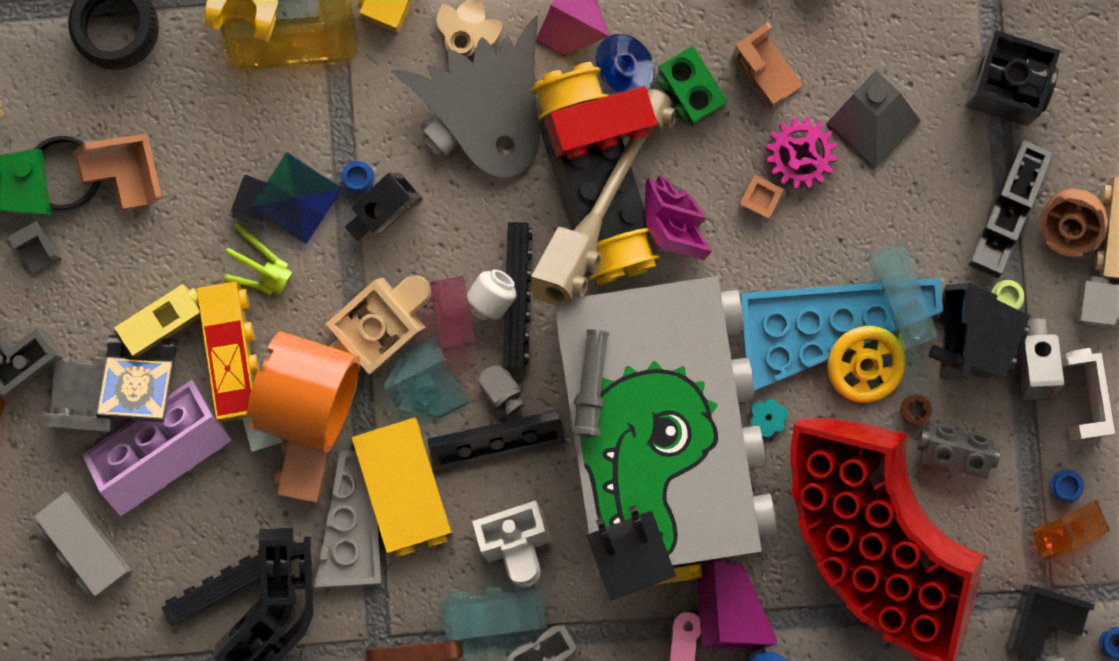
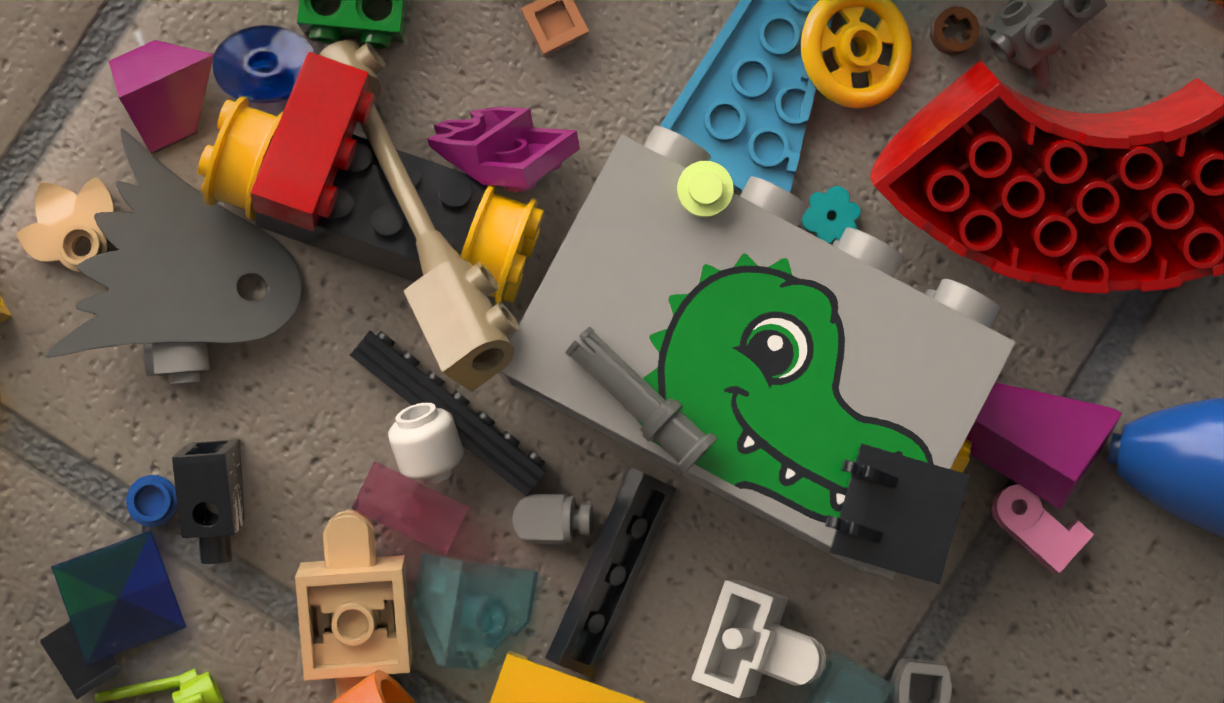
camera: 65 degrees left, 0 degrees up
(720, 338) = (705, 189): none -> yellowish green plate

